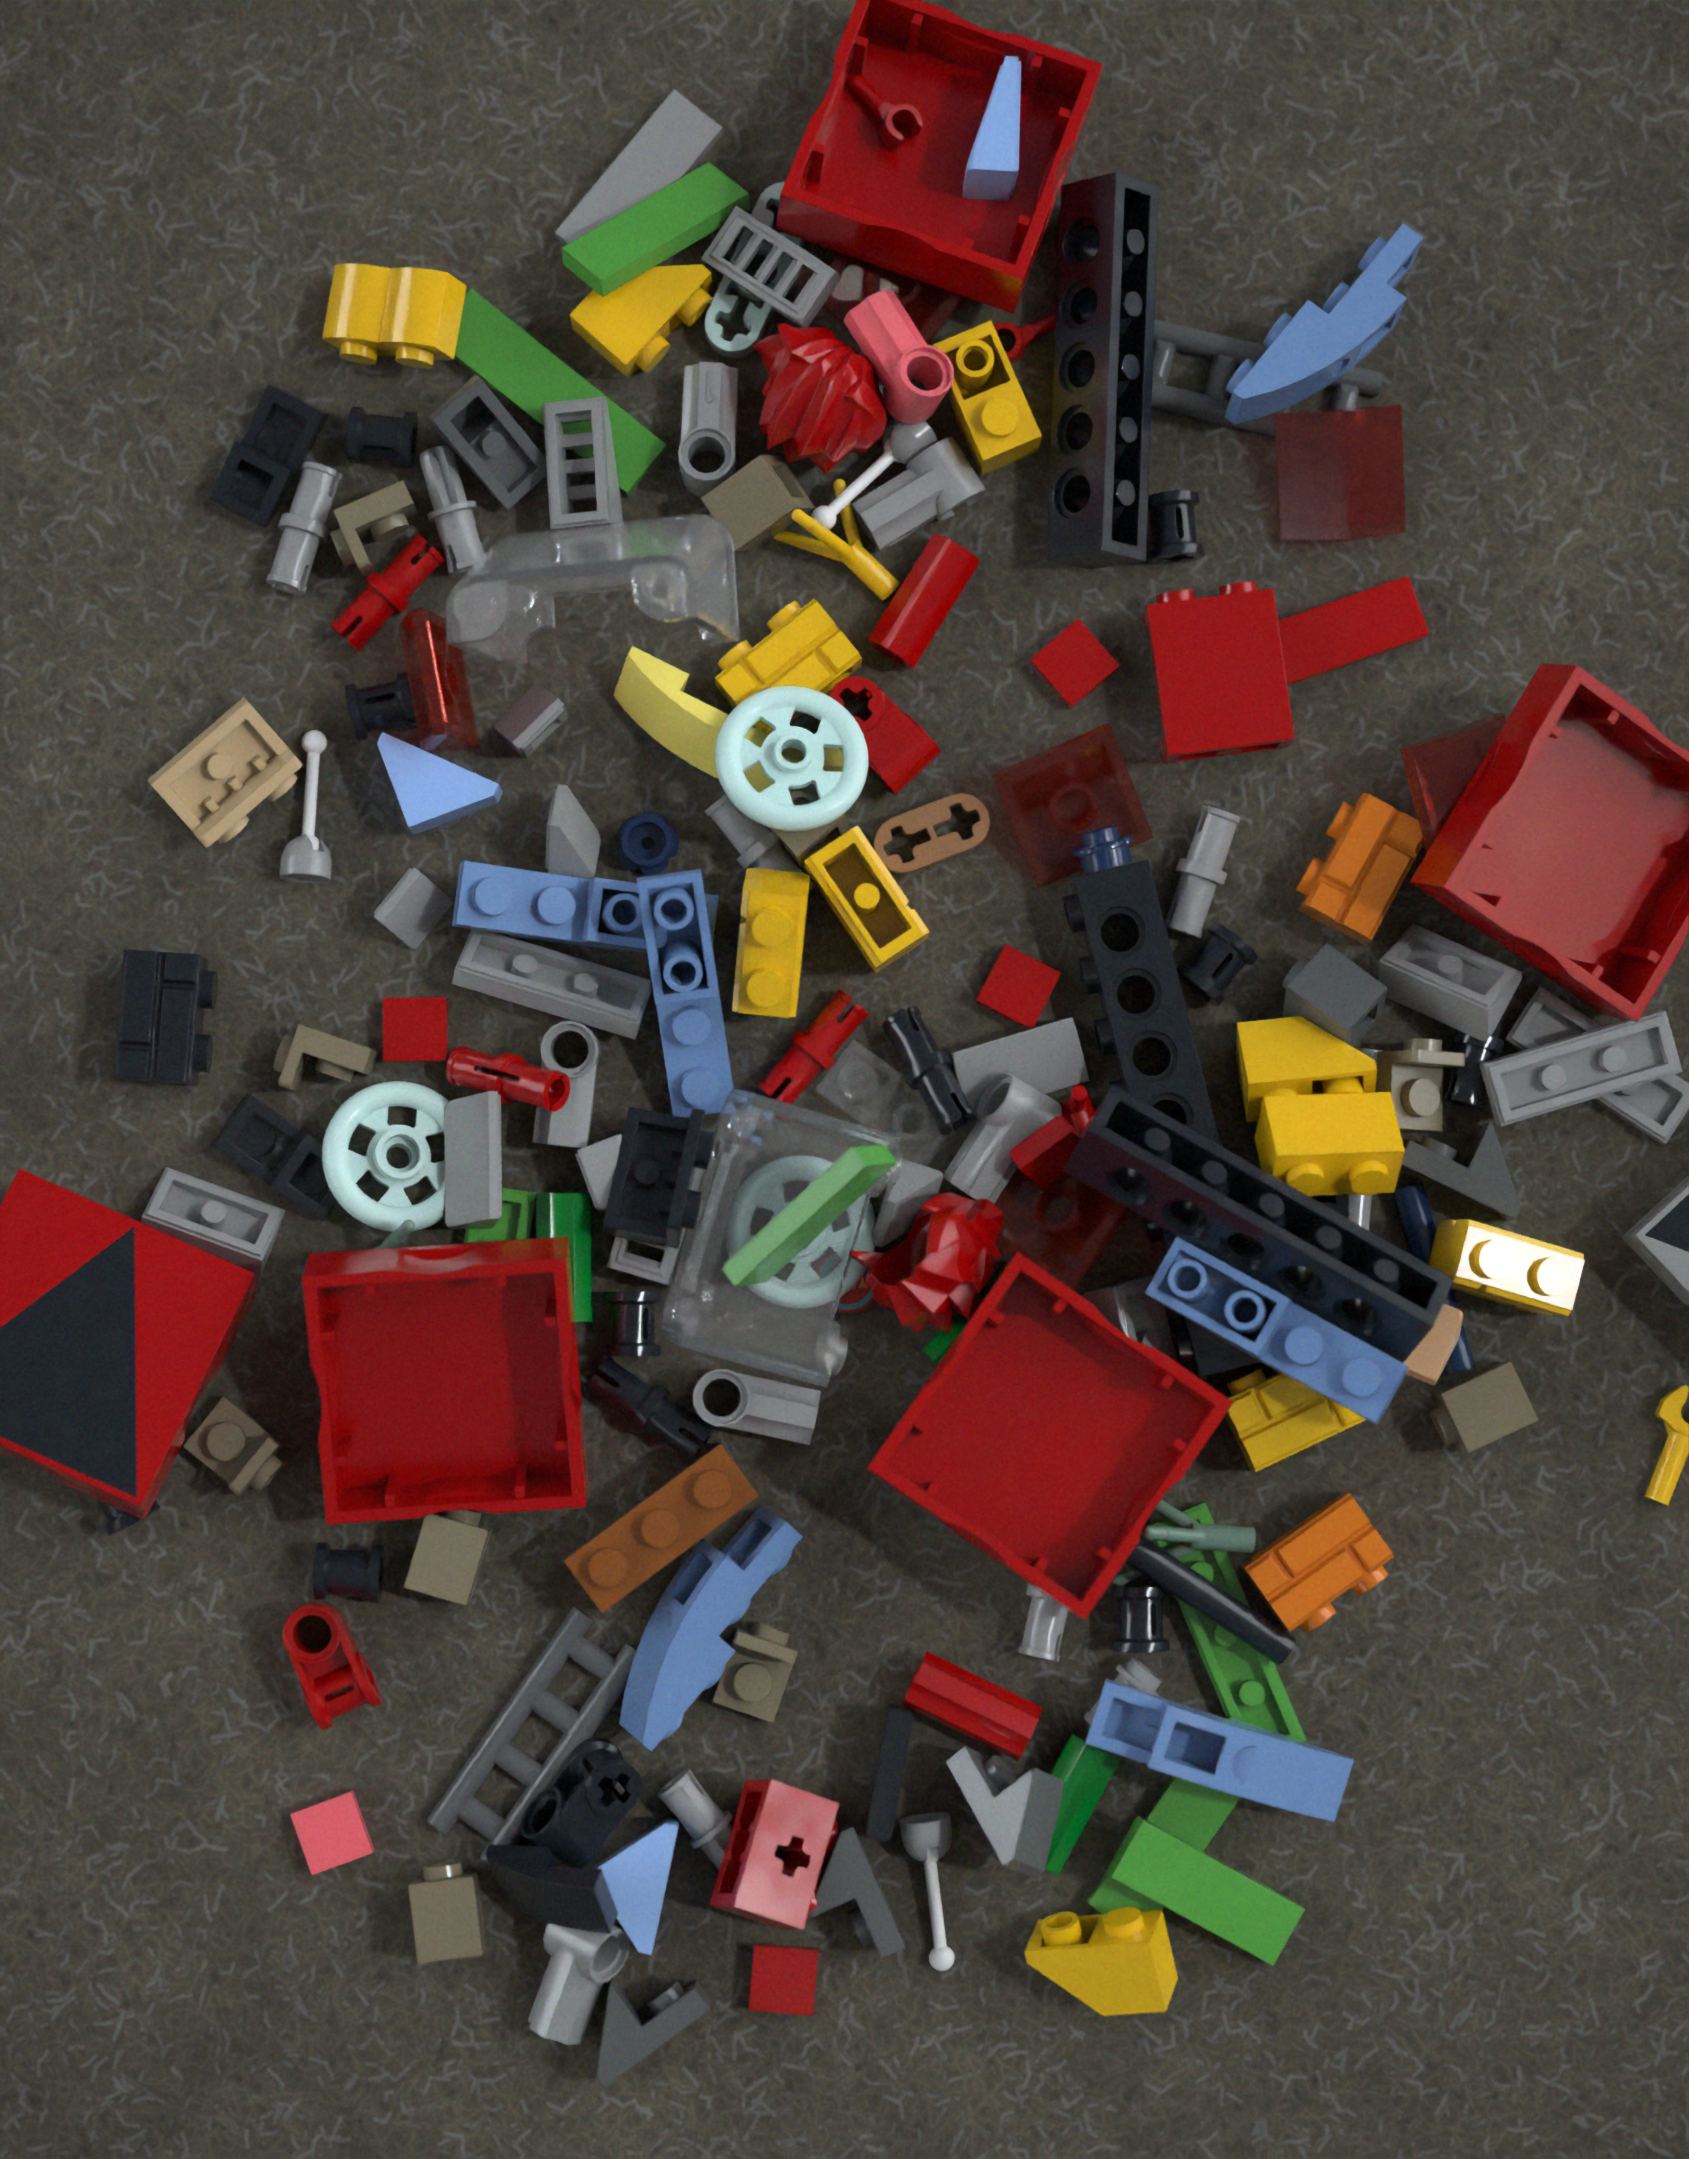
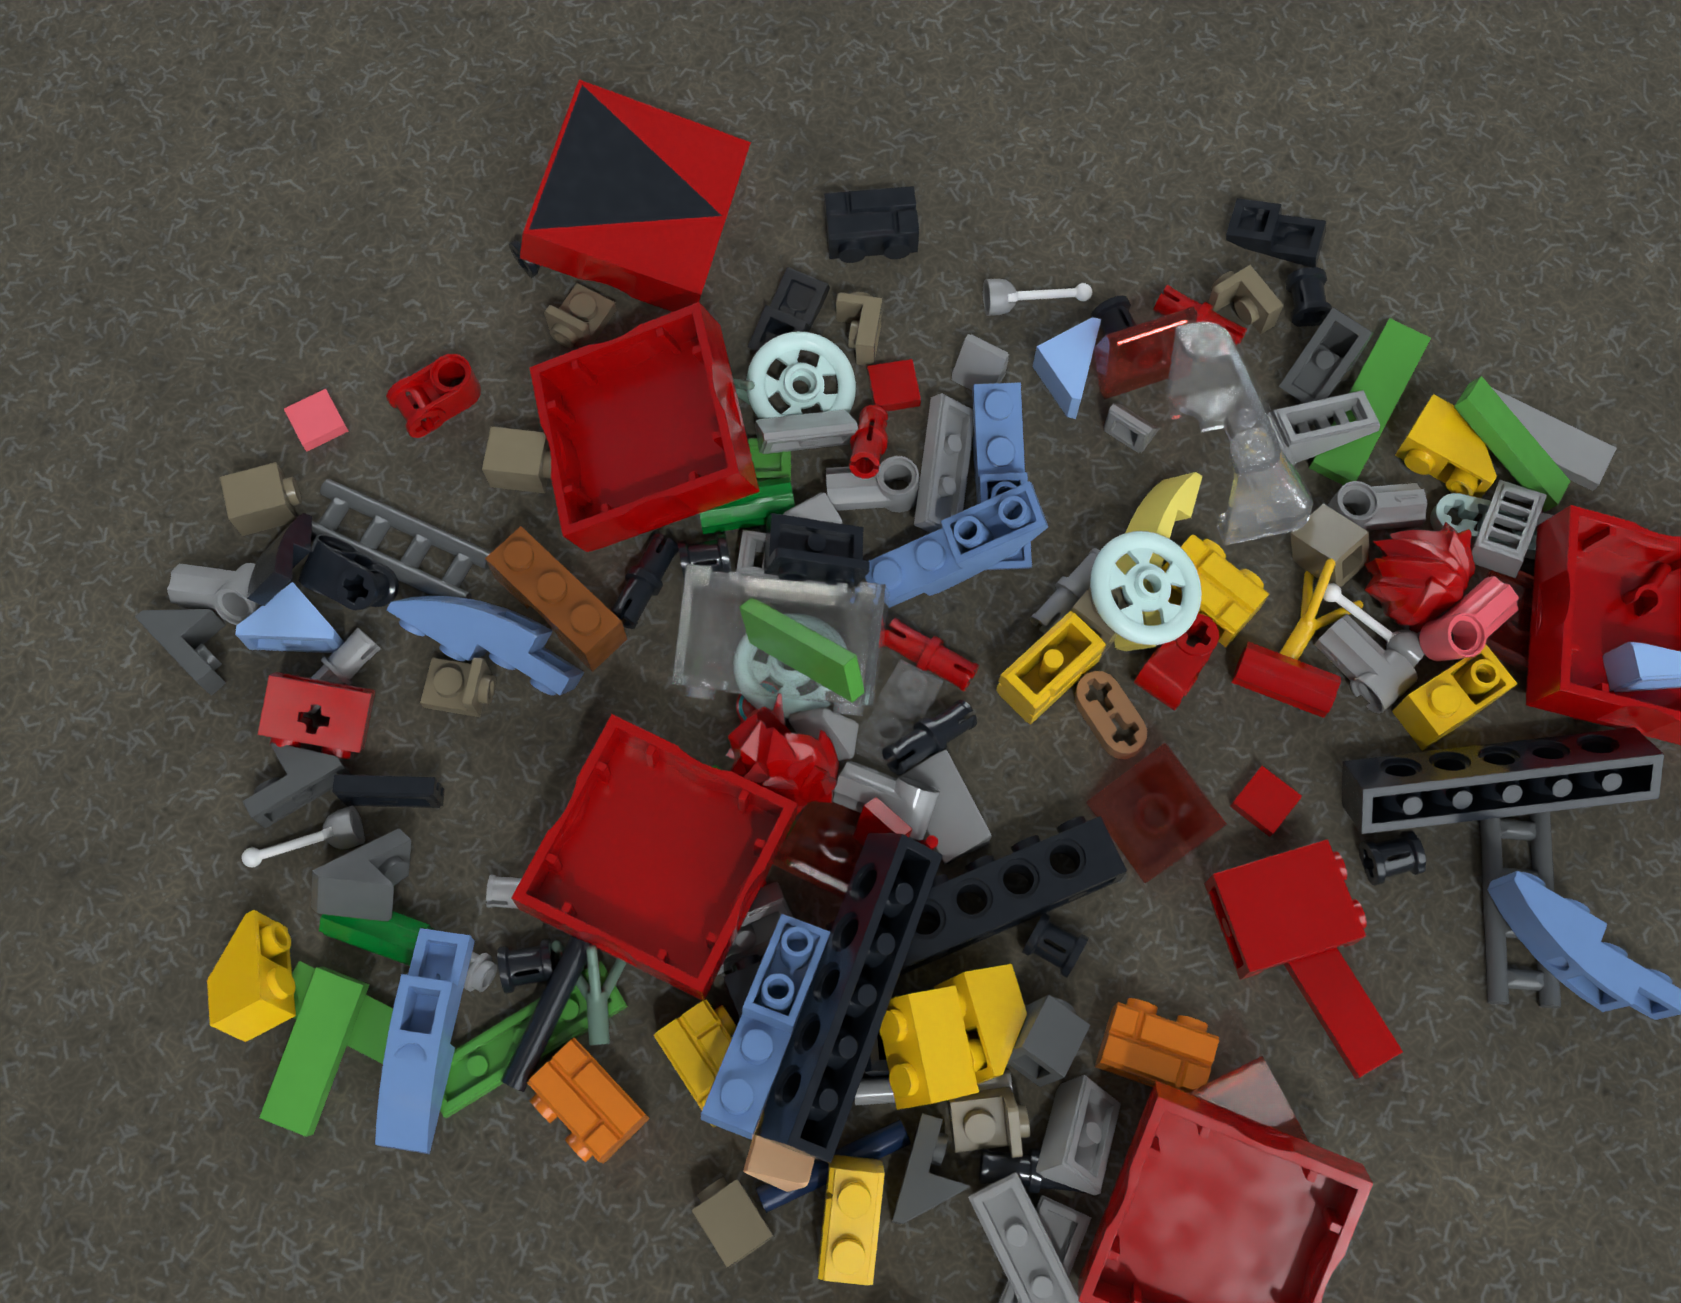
camera: 85 degrees right, 15 degrees down
(214, 1219) = (736, 279): light grey slope -> none
(226, 774) = (1051, 235): tan bracket -> none
(304, 528) = (1230, 258): light grey pin -> none
(348, 1572) = (500, 398): black bush -> none
(394, 314) = (1399, 287): yellow brick -> none
(451, 510) = (1271, 348): light grey axle -> none
(570, 837) = (1054, 458): light grey slope -> none
(647, 826) = (1066, 506): dark blue plate -> none
(763, 1406) = (655, 653): light grey piece -> none
(770, 942) = (1004, 602): yellow brick -> none
(783, 1978) = (229, 742): red tile -> none
(972, 1706) = (446, 846): red axle -> none
(1018, 987) = (1007, 798): red tile -> none
(1025, 334) = (1503, 721): red hand -> none
(1103, 849) = (1128, 839): dark blue plate -> none
(1201, 871) = (1126, 922): light grey pin -> none
(1340, 473) = (1472, 983): clear red slope -> none

